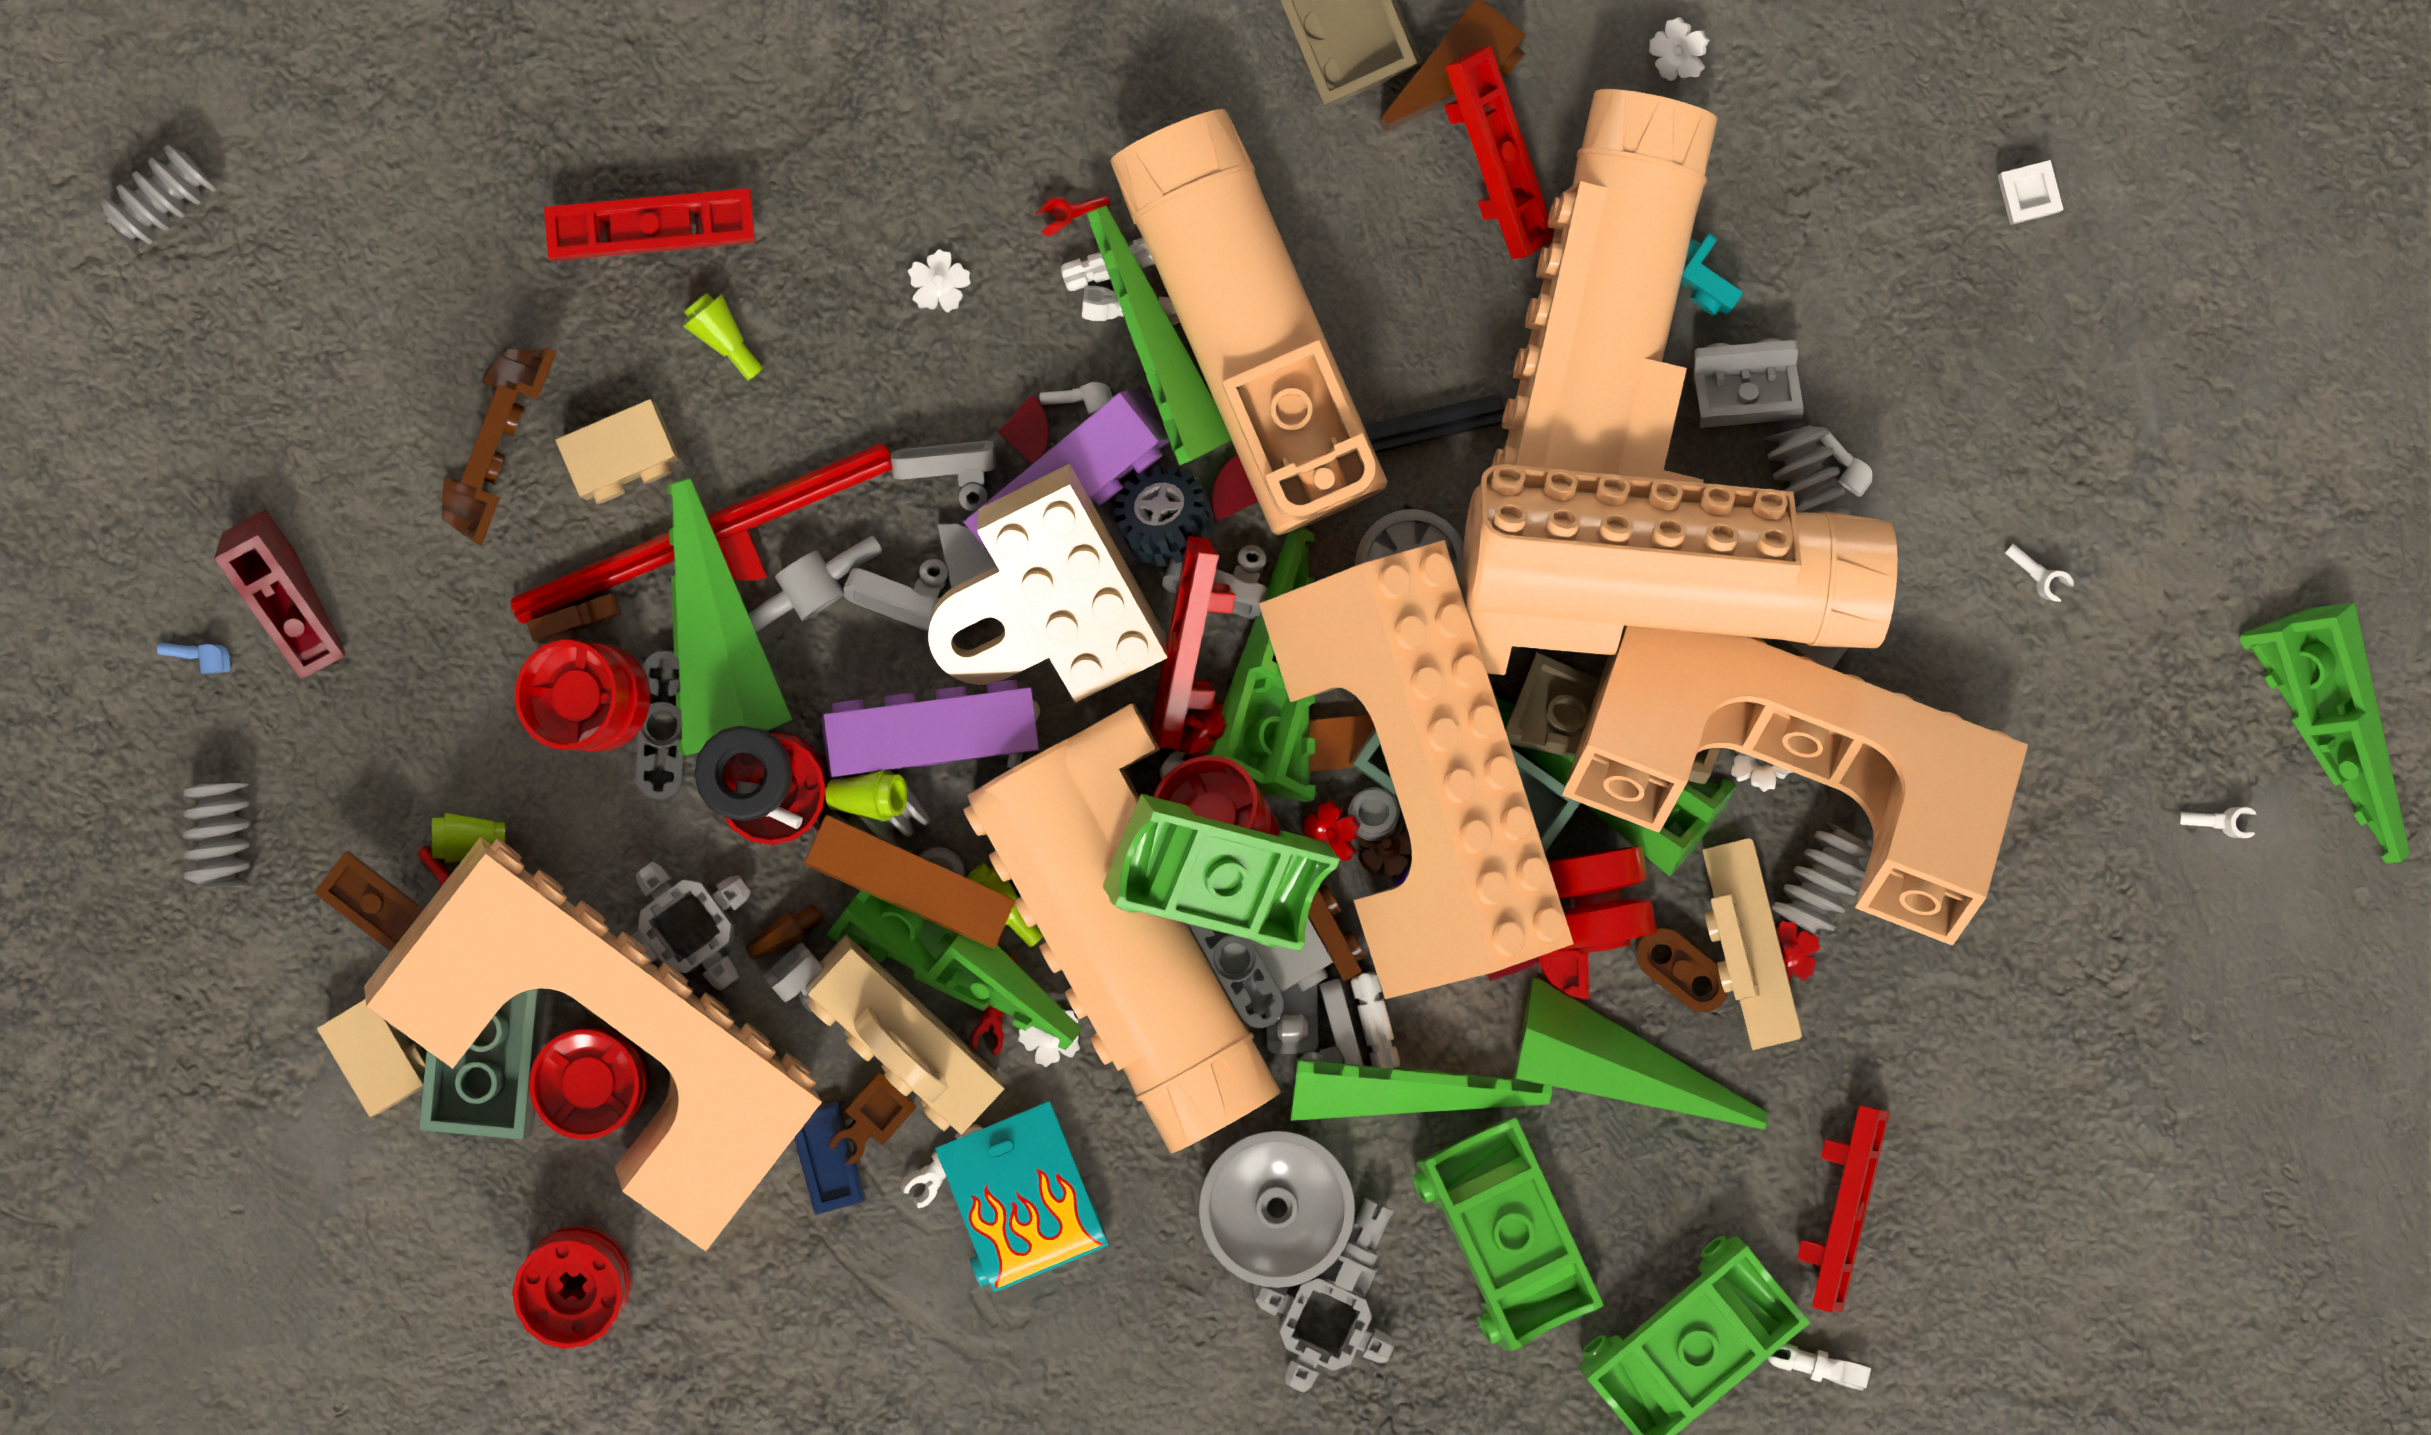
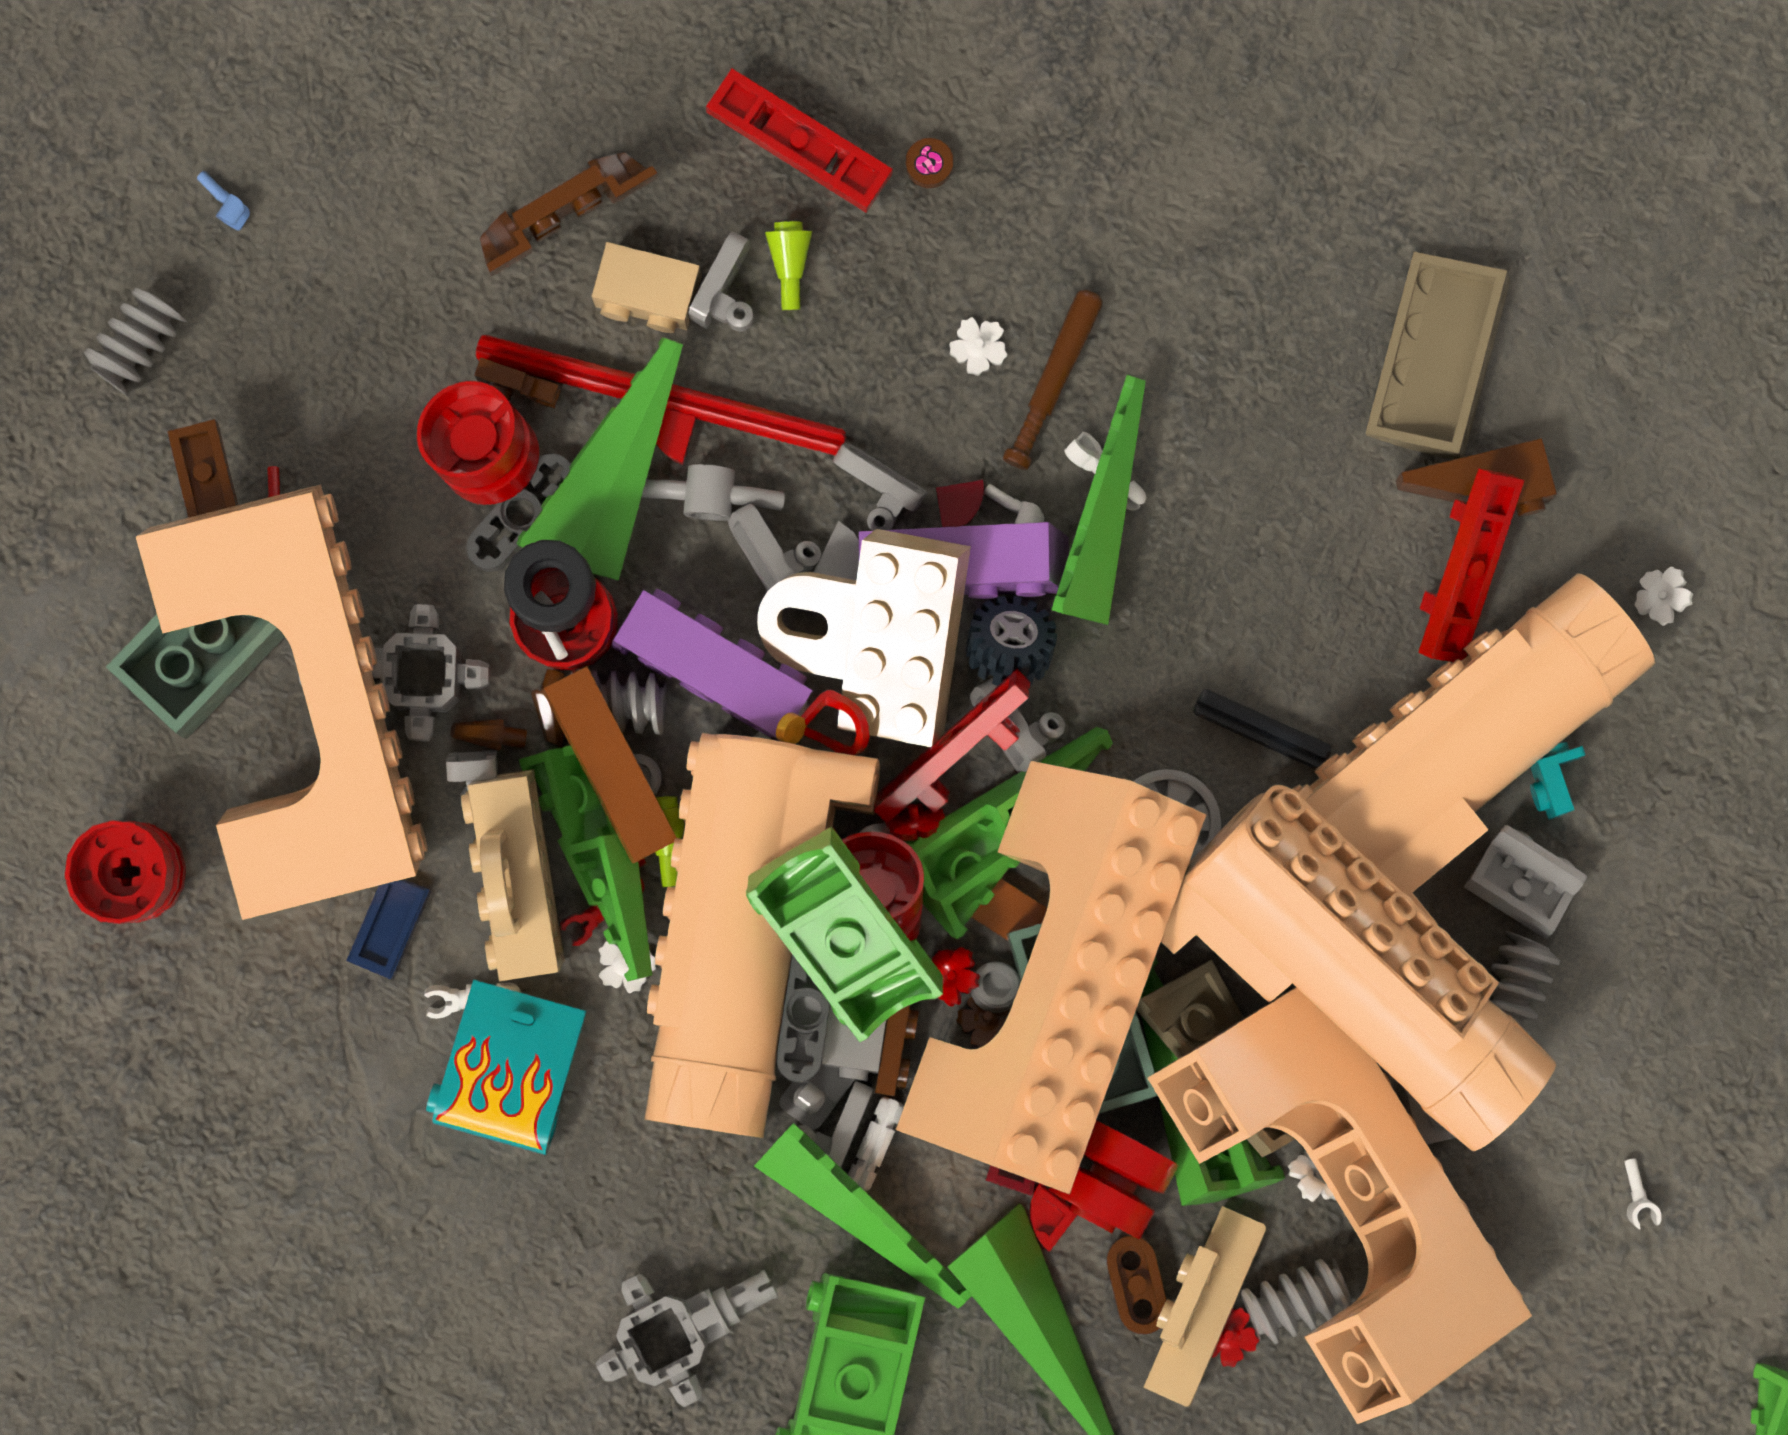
camera: 40 degrees right, 5 degrees down
(279, 593) = (318, 200): dark red slope -> none
(374, 1057) = (115, 591): tan brick -> none
(457, 834) = (307, 471): lime cone -> none
(589, 1082) = (257, 730): red wheel -> none
(680, 416) = (712, 297): none -> light grey piece
(774, 156) = (929, 163): none -> reddish brown tile
(829, 886) = (550, 727): none -> reddish brown bar
(869, 794) = (630, 676): lime cone -> none
(875, 1114) = (451, 920): reddish brown plate -> none
(1018, 236) = (1060, 363): none -> reddish brown piece
(1039, 730) = (793, 727): none -> red piece
(1066, 212) = (1111, 365): red hand -> none
(1078, 273) = (1086, 418): white axle -> none
(1232, 490) = (1078, 664): dark red tile -> none
(1248, 320) = (1185, 545): light nougat piece -> none
(1267, 1247) = (654, 1220): light grey dish -> none
(1857, 475) = (1556, 1015): white hand -> none

